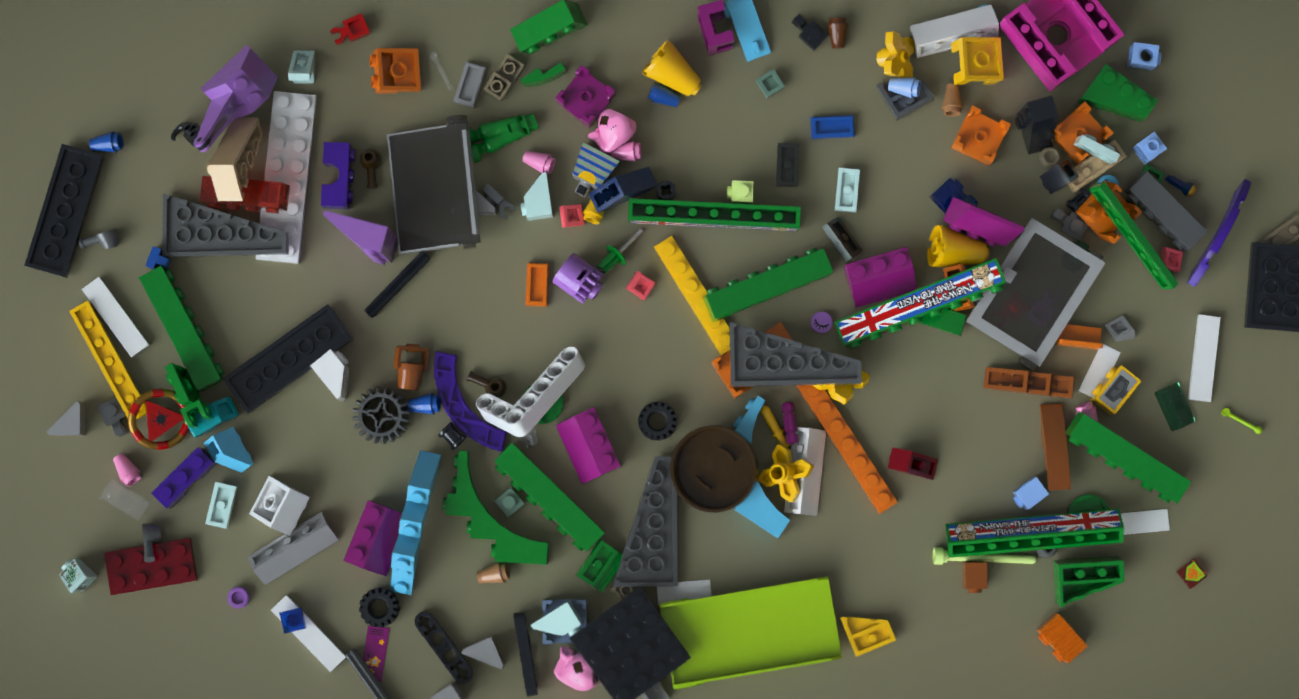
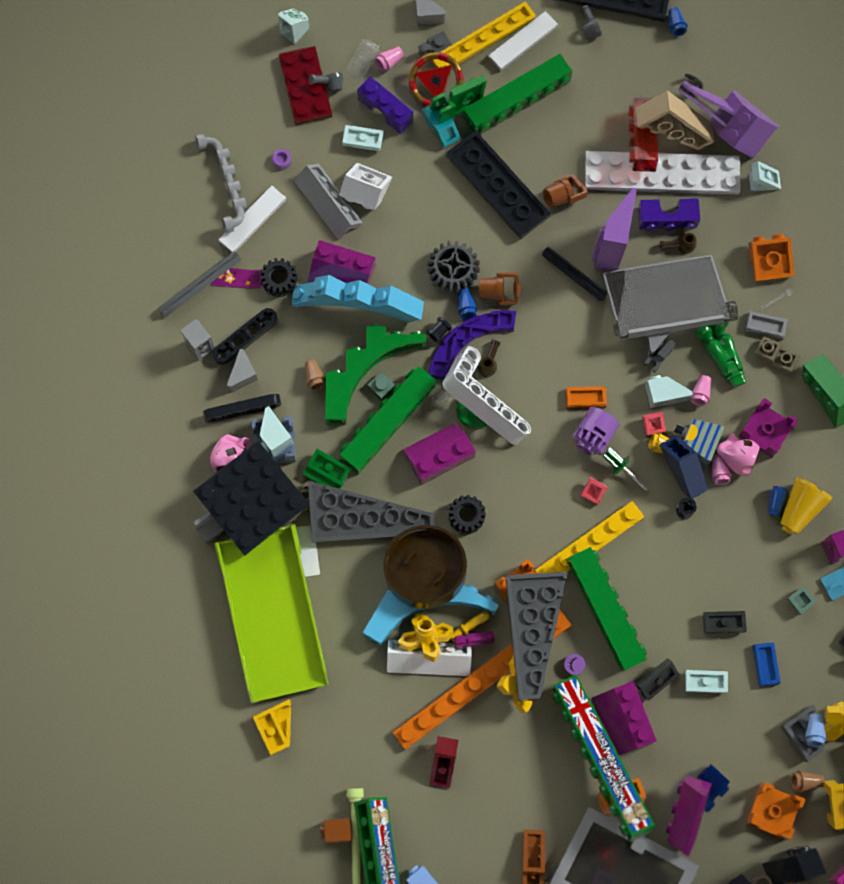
camera: 80 degrees right, 10 degrees down
(156, 258) = (579, 68): blue tile -> none
(206, 232) = (605, 108): dark grey wing -> none
(228, 450) = (412, 138): medium azure slope -> none
(251, 658) = (228, 171): none -> light grey bar
(292, 620) = (263, 202): clear blue plate -> none
(304, 289) = (562, 191): none -> dark orange piece
(334, 372) = (488, 221): white slope -> none
(353, 28) = (804, 219): red plate -> none
(536, 77) = (779, 383): green slope -> none
(714, 214) = (668, 554): green brick -> none
(740, 192) = (692, 578): yellowish green brick -> none
(949, 322) = (587, 787): green slope -> none
(954, 248) = (660, 791): yellow cone -> none

